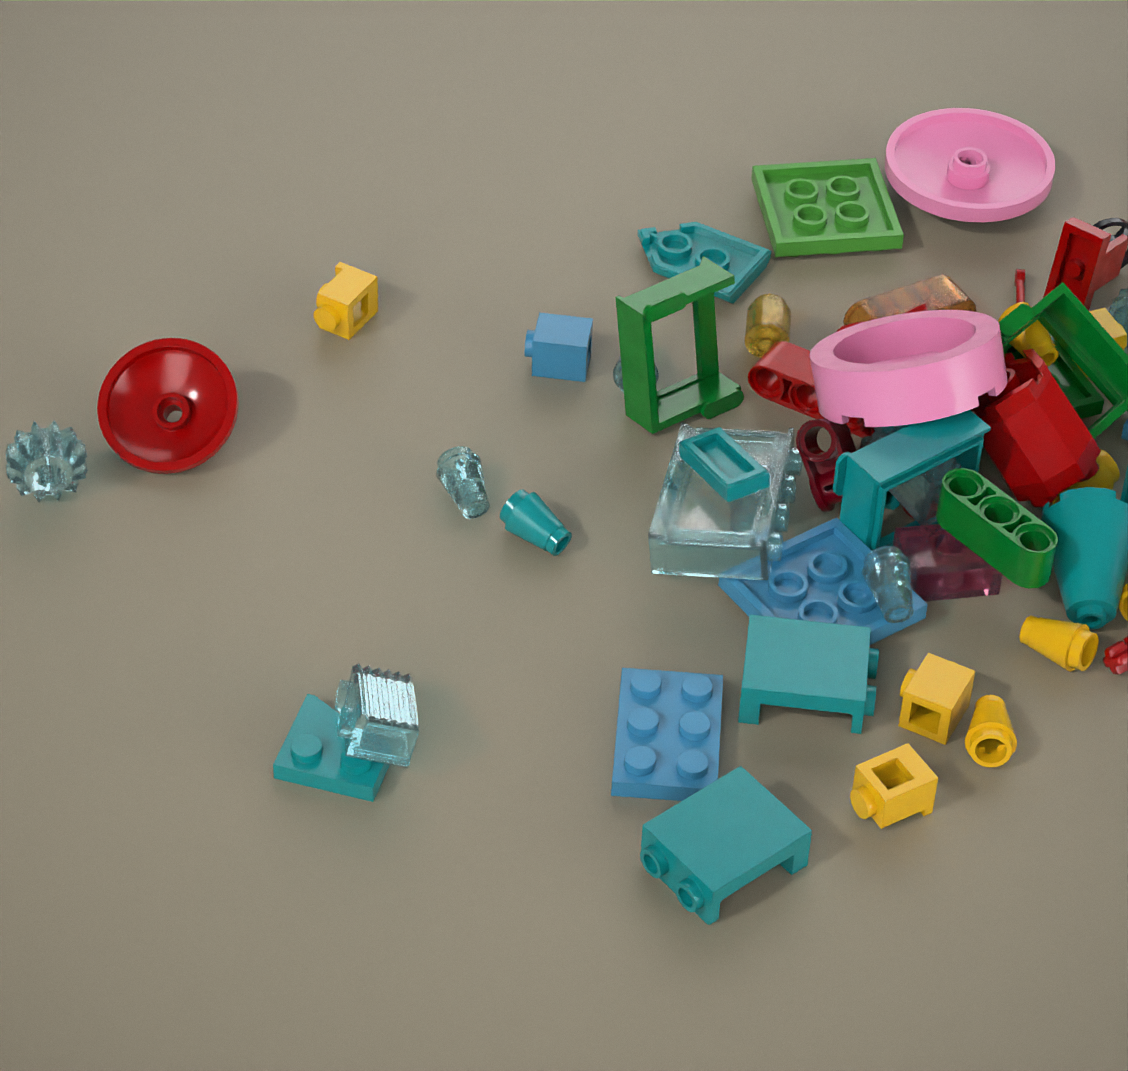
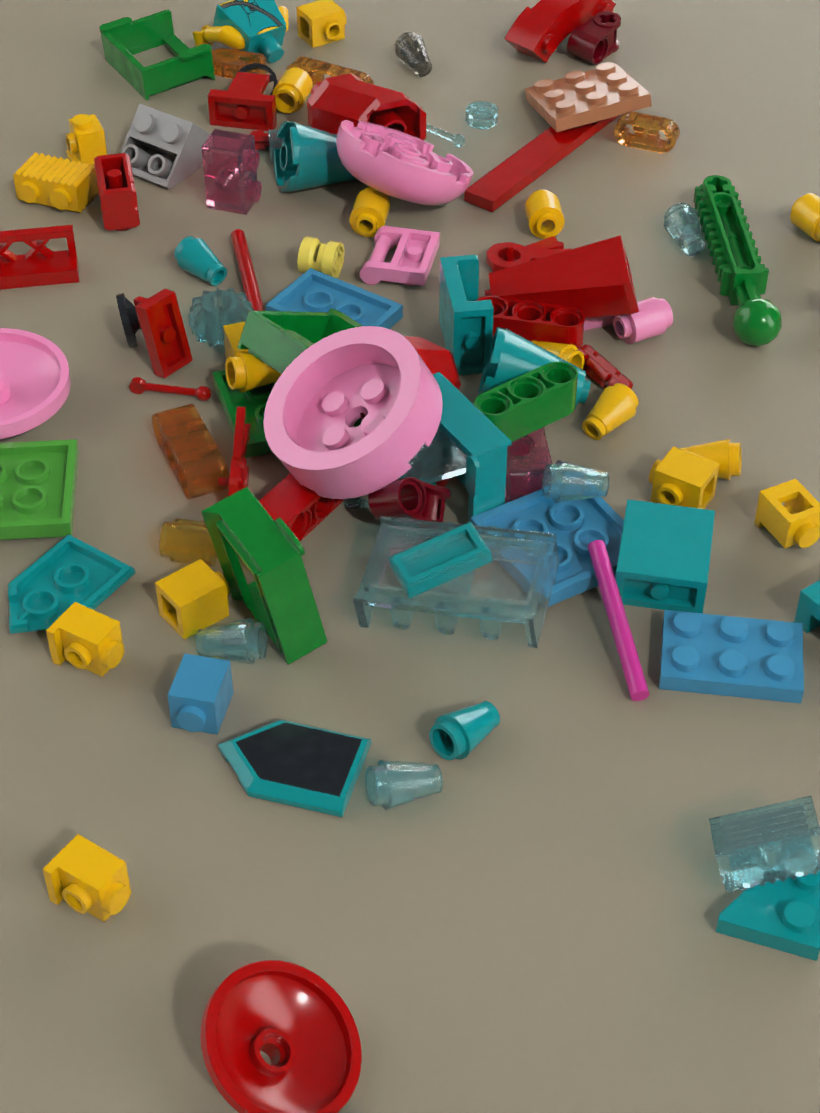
camera: 85 degrees left, 0 degrees up
(496, 422) = (298, 765): none -> black tile
(623, 269) = (86, 640): none -> yellow brick
(676, 339) = (193, 598): none -> yellow brick
(694, 631) = (618, 621): none -> dark pink bar

